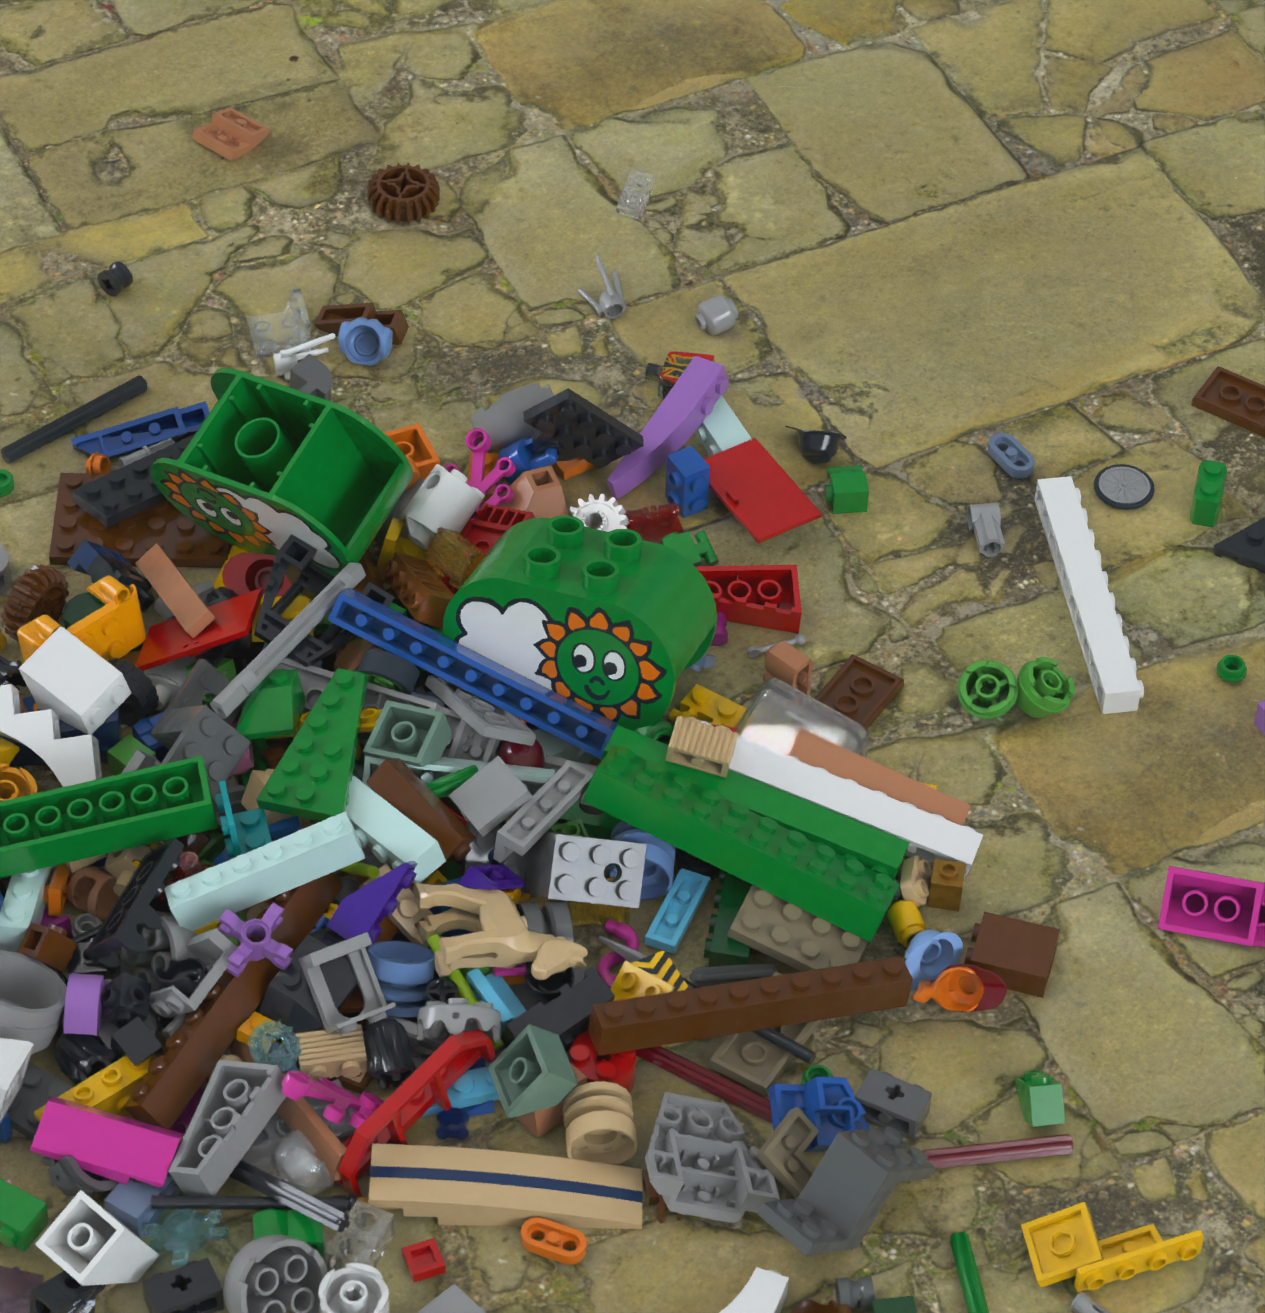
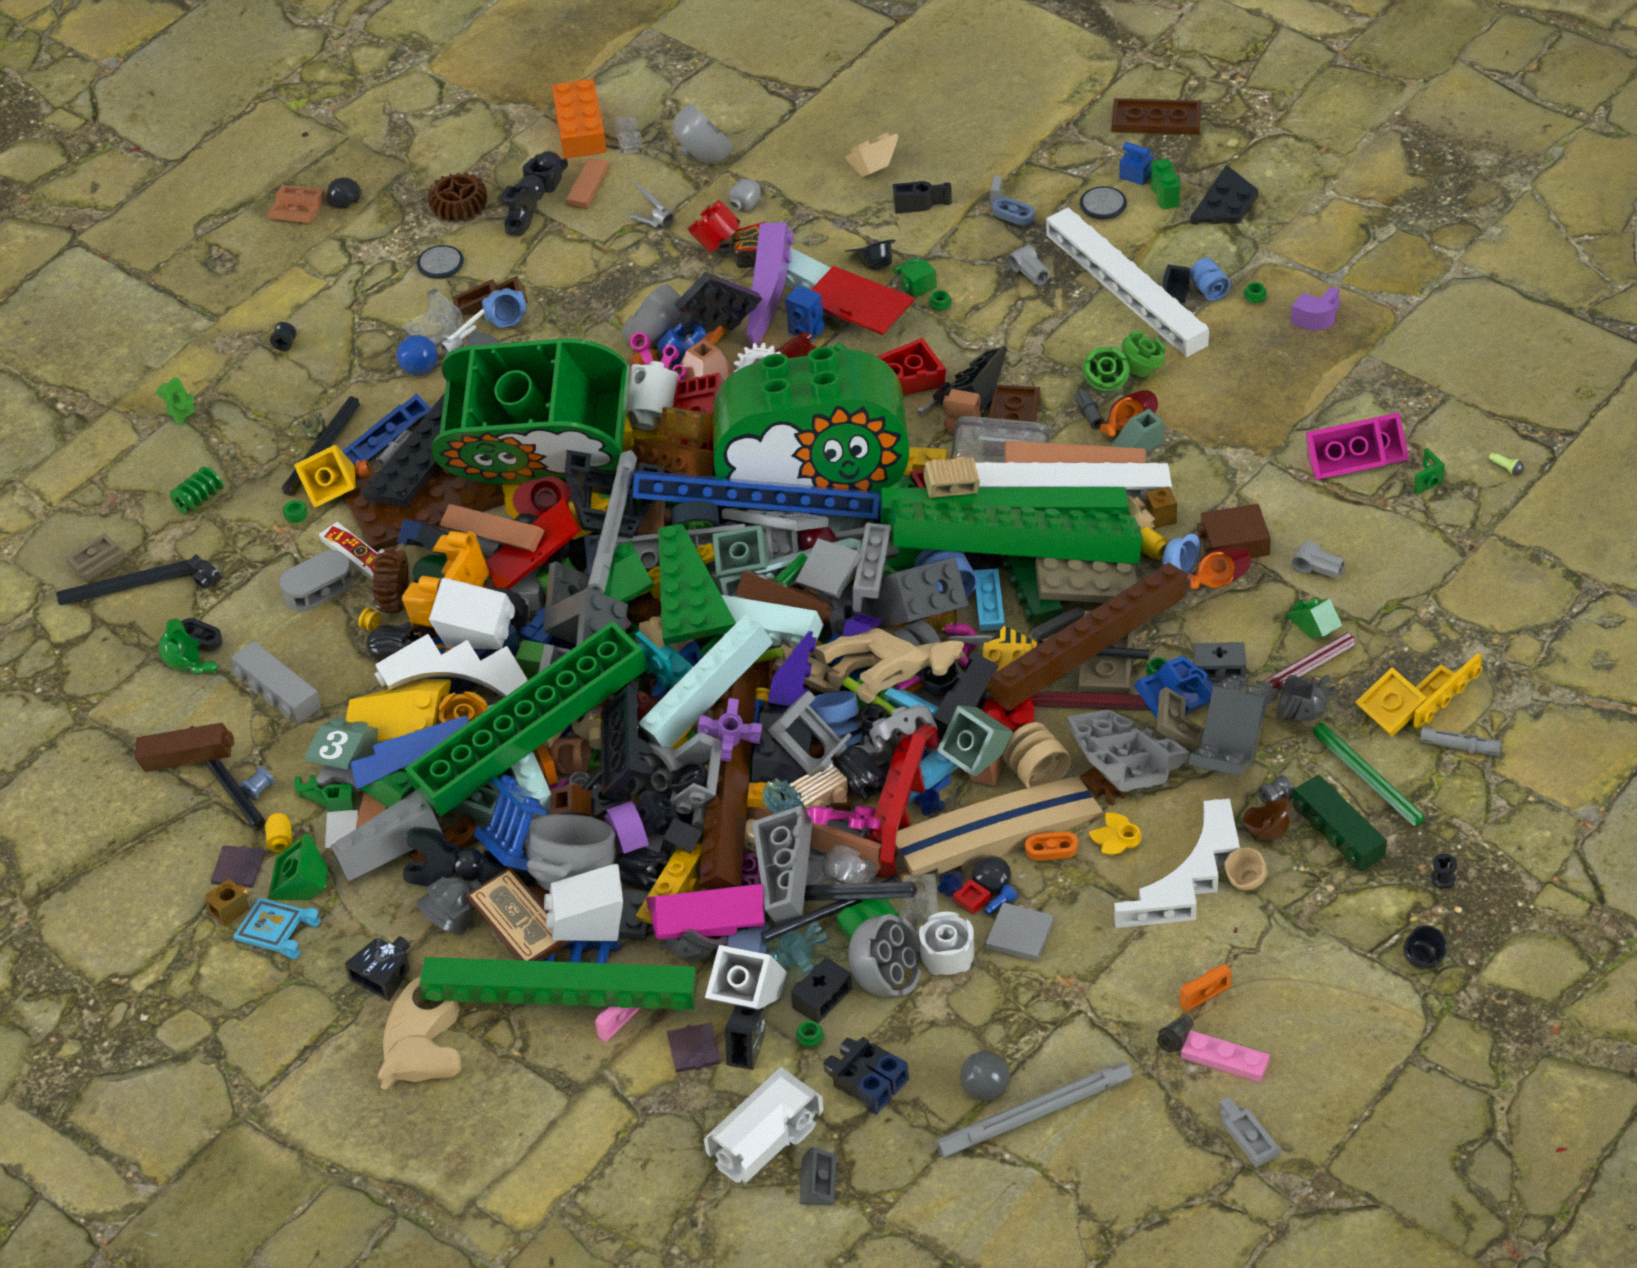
camera: 20 degrees left, 0 degrees up
(25, 542) = (357, 552): none -> tile
(50, 455) = (326, 475): none -> yellow slope
(80, 392) = (313, 425): none -> olive plant
(239, 353) = (417, 355): none -> blue piece
(287, 139) = (343, 192): none -> black hair
(339, 260) = (440, 261): none -> light grey wheel
(411, 1232) = (950, 883): none -> clear blue plate
(463, 1244) = (991, 873): none -> black hair
(468, 222) = (524, 196): none -> black piece
(468, 1275) = (1008, 894): none -> blue piece
(556, 232) = (587, 183): none -> nougat tile
(592, 154) = (579, 118): none -> orange brick
(633, 1260) = (1116, 835): none -> yellow plate
(654, 339) = (714, 226): none -> red brick
(707, 227) = (700, 137): none -> light grey cylinder
(835, 643) = (978, 379): none -> black wedge
(857, 528) = (940, 300): none -> green plate
(891, 327) = (872, 154): none -> tan slope
(913, 395) = (920, 196): none -> black piece
(944, 730) = (1089, 409): none -> dark grey axle
(960, 1194) = (1303, 698): none -> dark grey helmet
(979, 784) = (1141, 431): none -> sand green slope
(983, 754) = (1126, 408): none -> orange hair
(1006, 421) = (996, 189): none -> light grey tile
(1086, 1024) = (1311, 557): none -> light grey piece
(1142, 619) = (1177, 282): none -> black panel
(1185, 630) = (1209, 279): none -> medium blue wheel
(1187, 454) = (1135, 163): none -> blue brick

